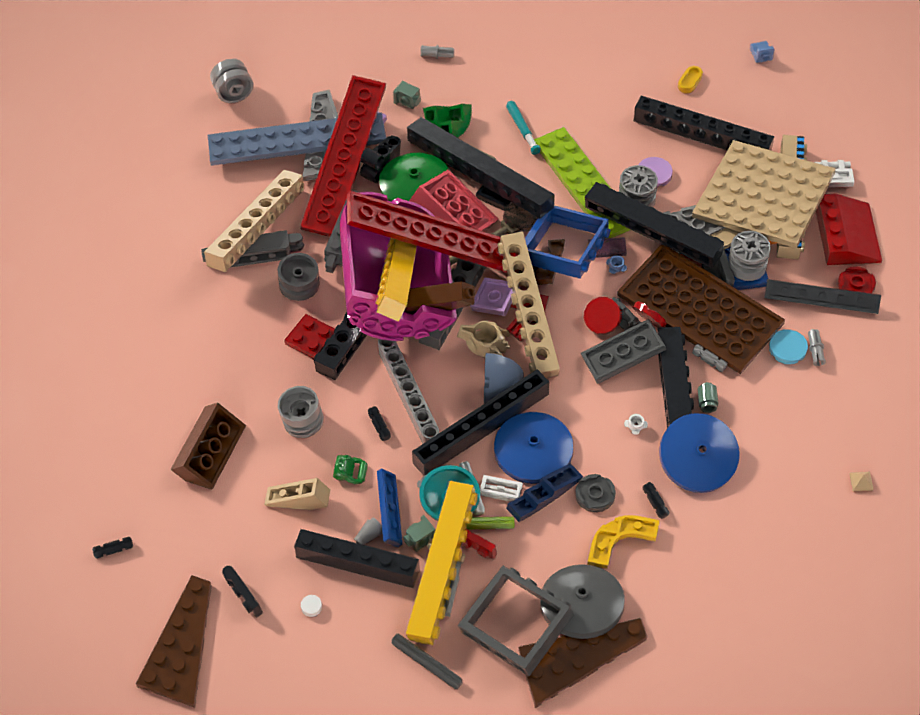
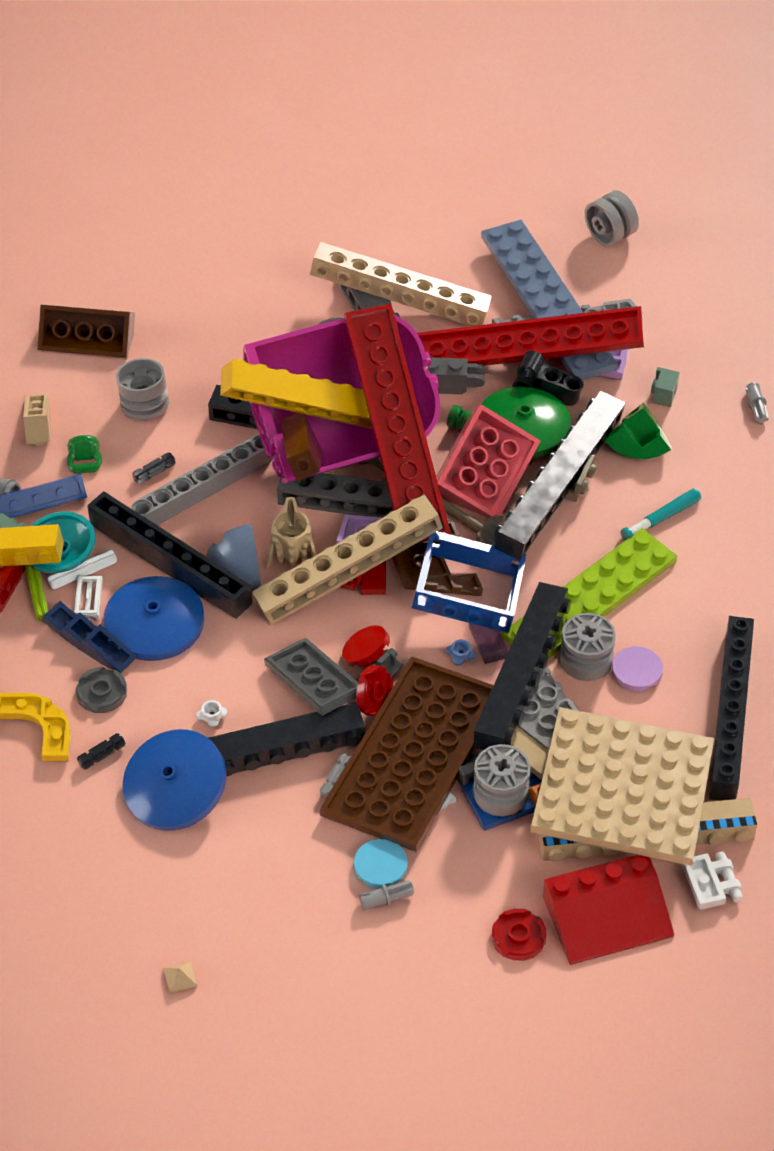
camera: 75 degrees right, 5 degrees down
(707, 397) = (268, 780): sand green brick -> none
(822, 296) = (475, 891): black plate -> none

